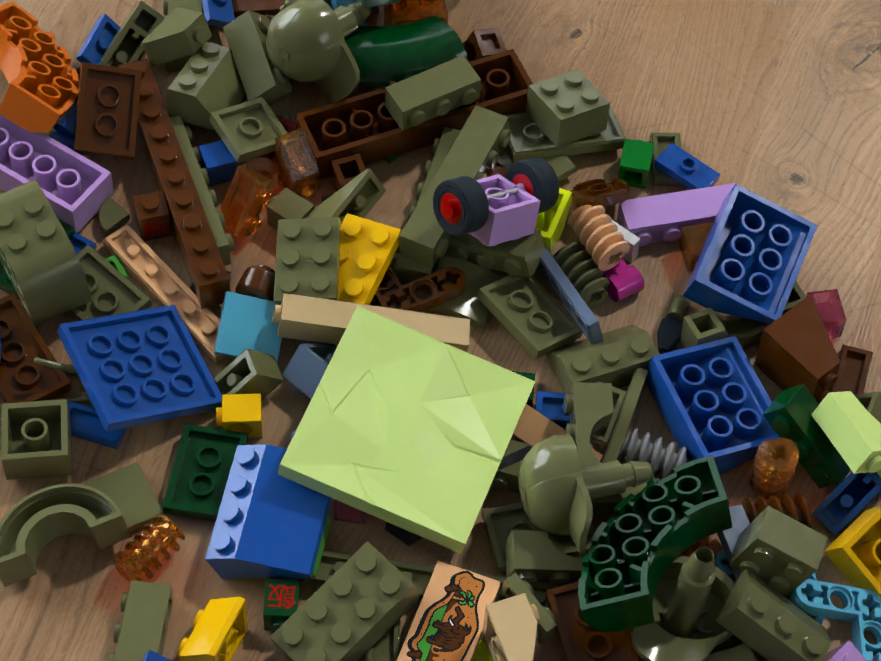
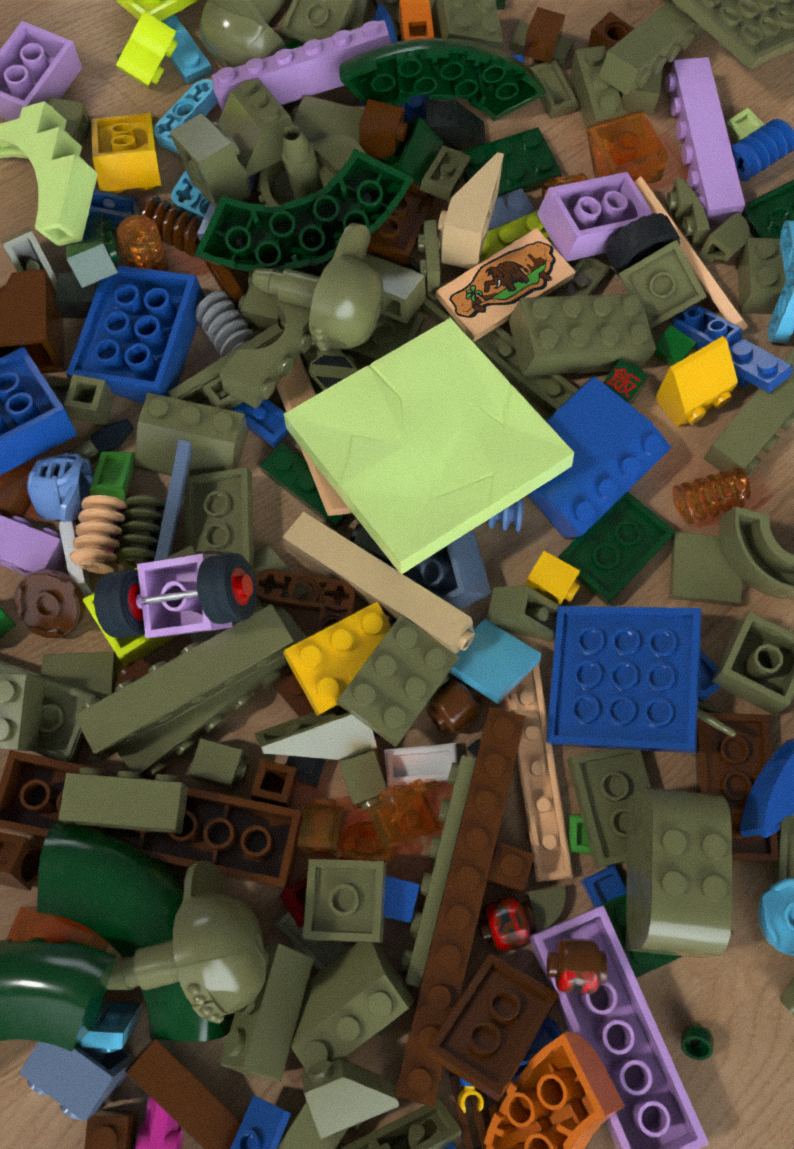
camera: 145 degrees left, 15 degrees up
(71, 160) = (577, 966): none -> reddish brown head
(129, 184) = (507, 924): none -> head
(255, 250) = (419, 762): none -> white tile
(398, 170) = (219, 764): none -> olive brick
(635, 296) = (113, 474): none -> bright green tile
(660, 262) = (59, 486): none -> medium blue piece

